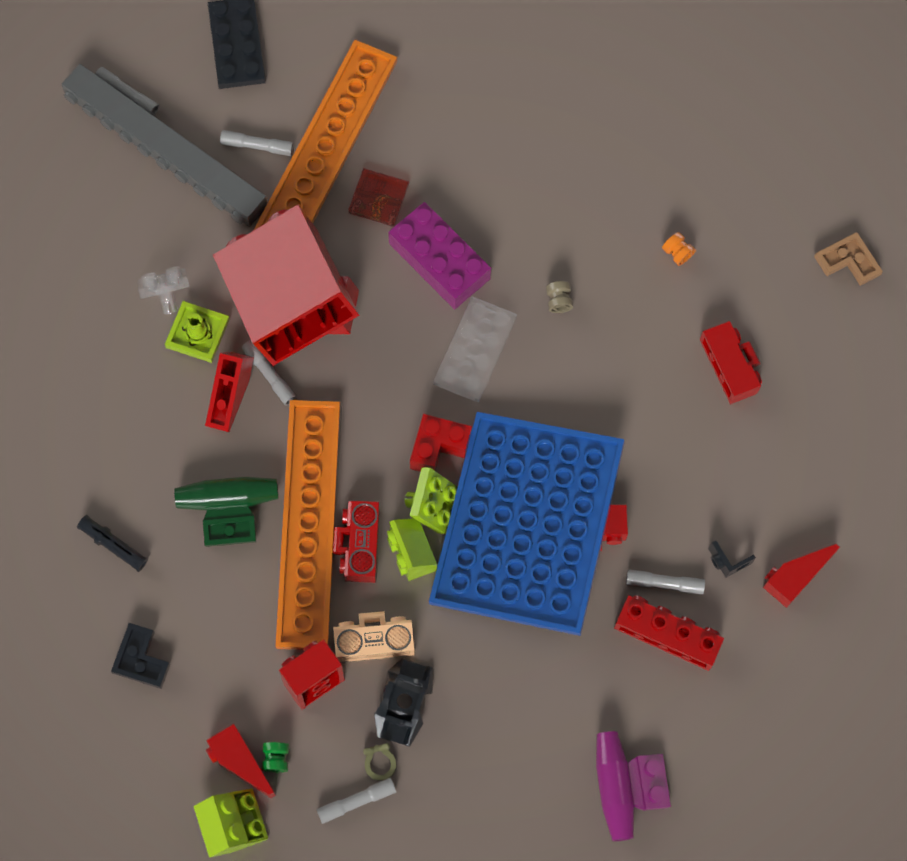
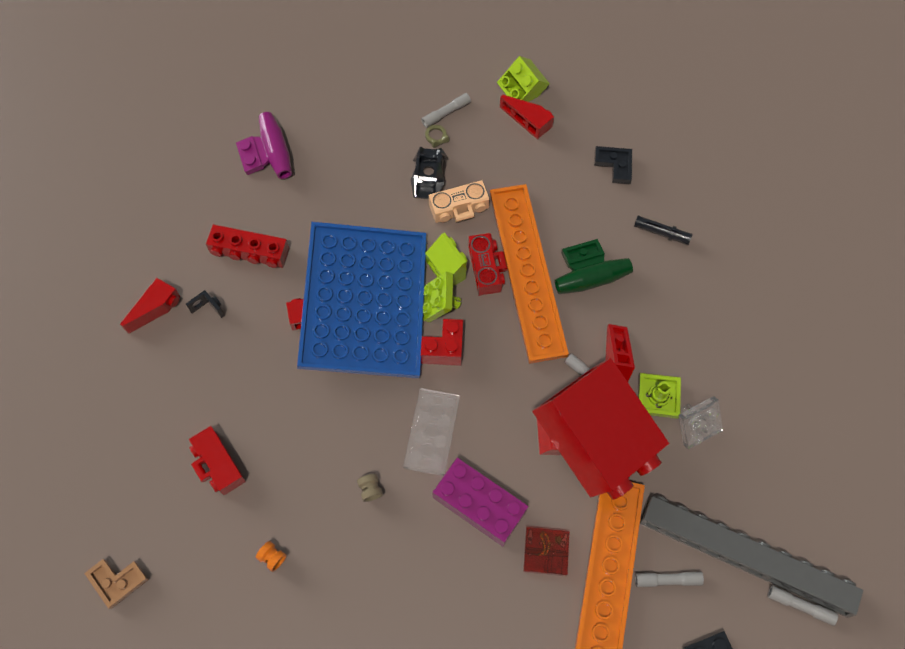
camera: 170 degrees right, 5 degrees down
(275, 757) = (506, 122): green wheel -> none
(311, 673) = (495, 158): red brick -> none
(648, 579) = (241, 283): light grey piece -> none

